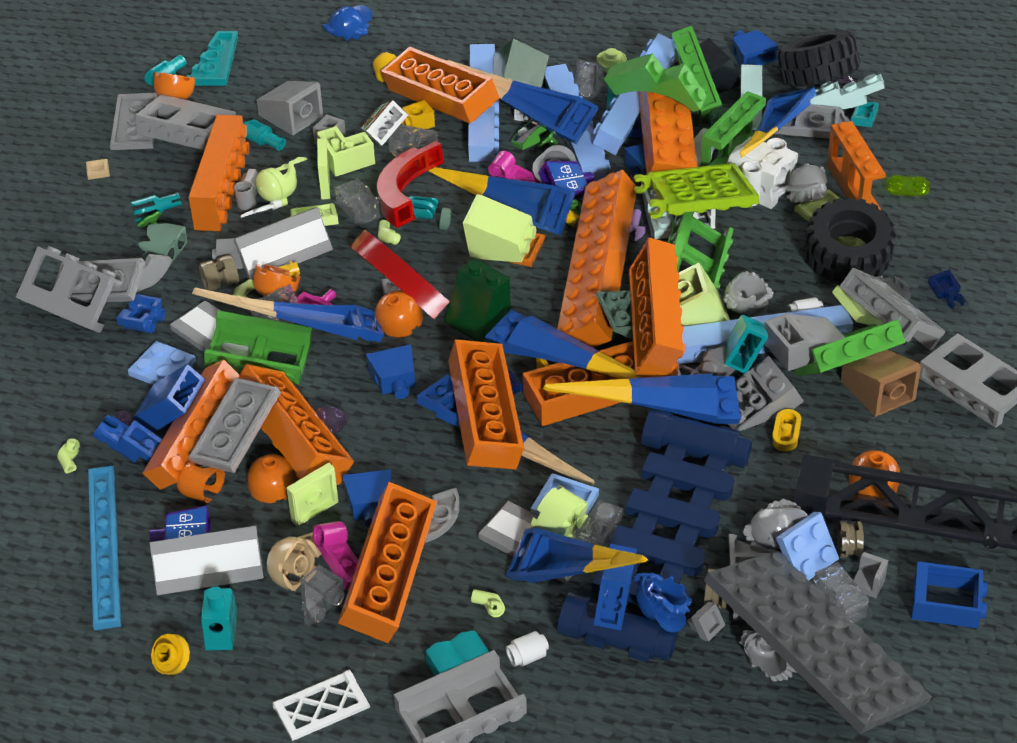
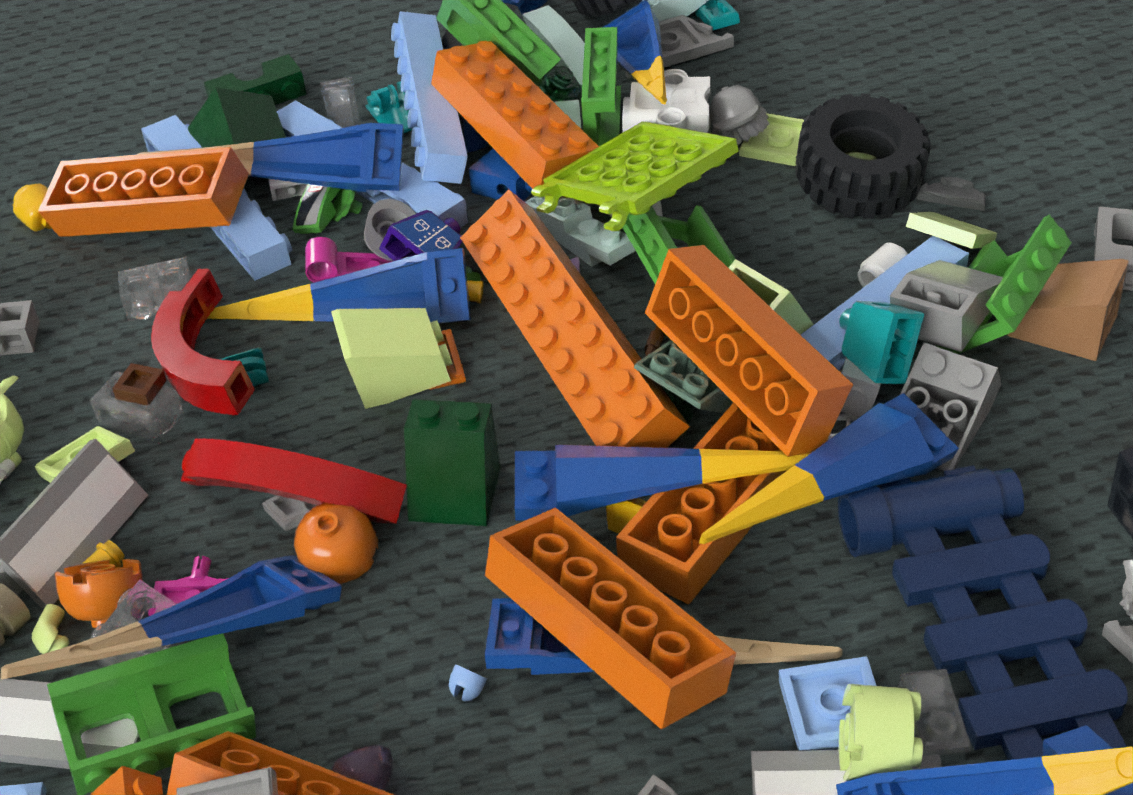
camera: 30 degrees left, 0 degrees up
(323, 169) = (52, 381): yellowish green tile -> none
(349, 152) = (63, 347): yellowish green brick -> none
(362, 190) = (139, 384): none -> reddish brown tile
(382, 123) = (94, 283): white torso -> none
(386, 234) = (222, 430): yellowish green arm -> none
(392, 370) = (399, 635): blue torso -> none
(407, 407) = (470, 681): none -> light blue hinge
(419, 115) = (136, 248): yellow brick -> none
(445, 219) = (290, 371): sand green tile -> none
(569, 48) = (280, 80): none -> dark green arch
(610, 57) = (346, 68): yellowish green plate -> none
(649, 76) = (457, 53): bright green arch -> none
(747, 293) = (802, 275): light grey hair -> none
(786, 430) = (1025, 440): yellow plate -> none
(855, 158) = (779, 47): orange window -> none
(889, 306) = (993, 209): light grey window -> none
(907, 185) = (844, 70): clear neon green plate -> none
(946, 286) = (1014, 161): clear blue plate -> none

